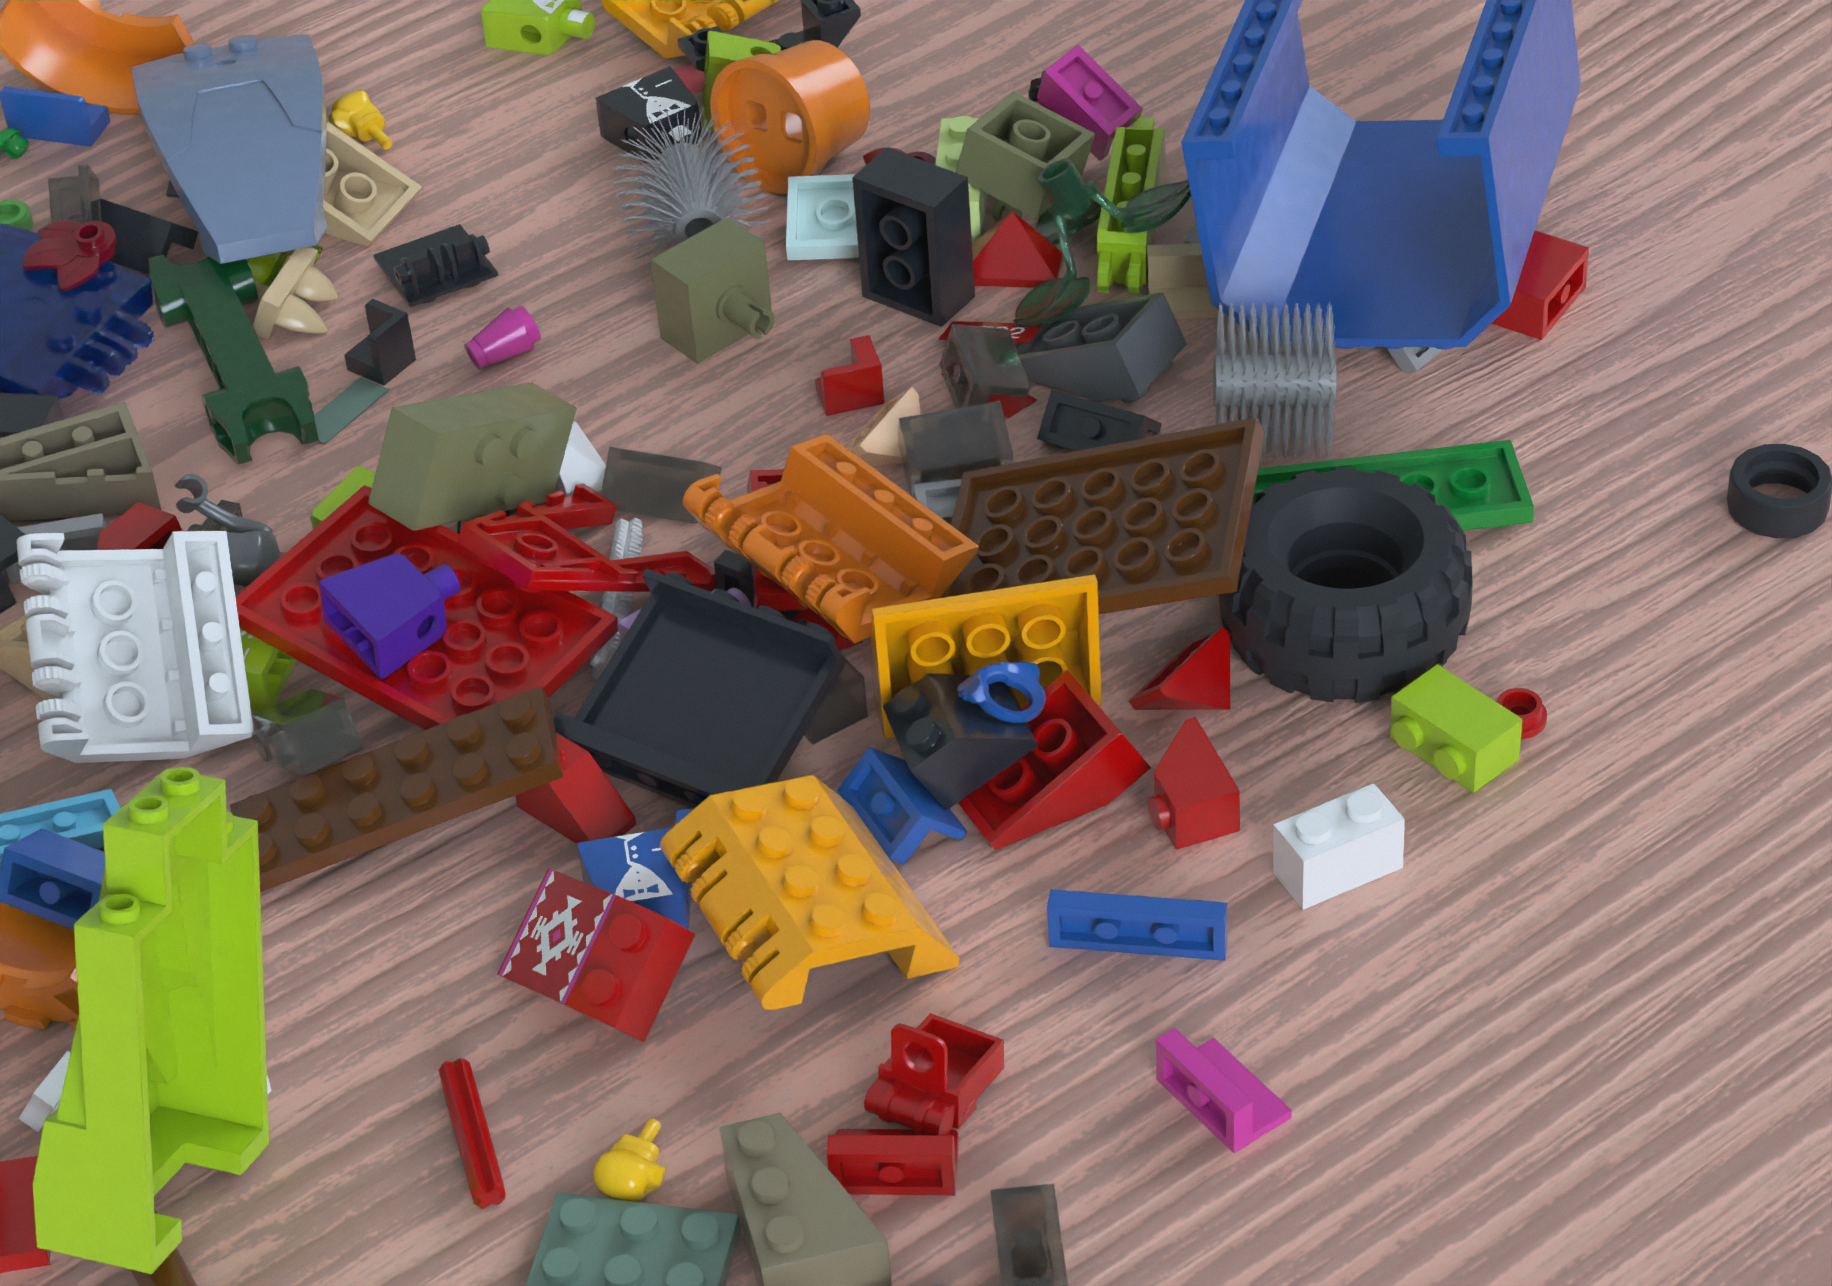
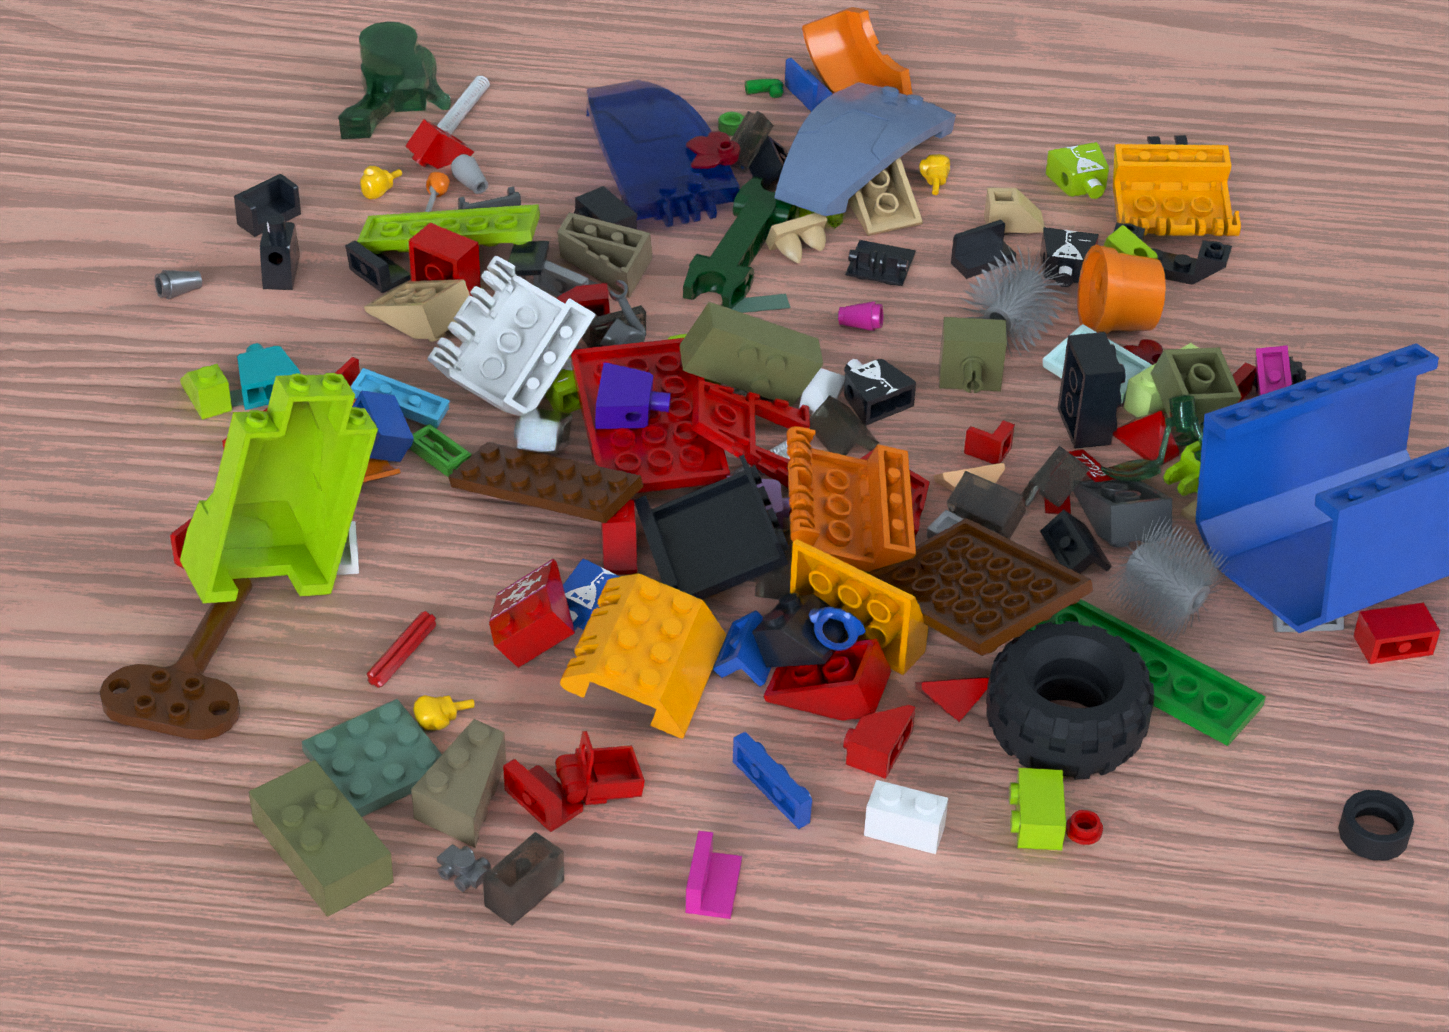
camera: 40 degrees right, 0 degrees up
(386, 348) = (805, 285): black panel -> none
(522, 109) = (1014, 210): none -> tan slope
(544, 176) = (977, 248): none -> black panel
(640, 406) = (877, 390): none -> black torso

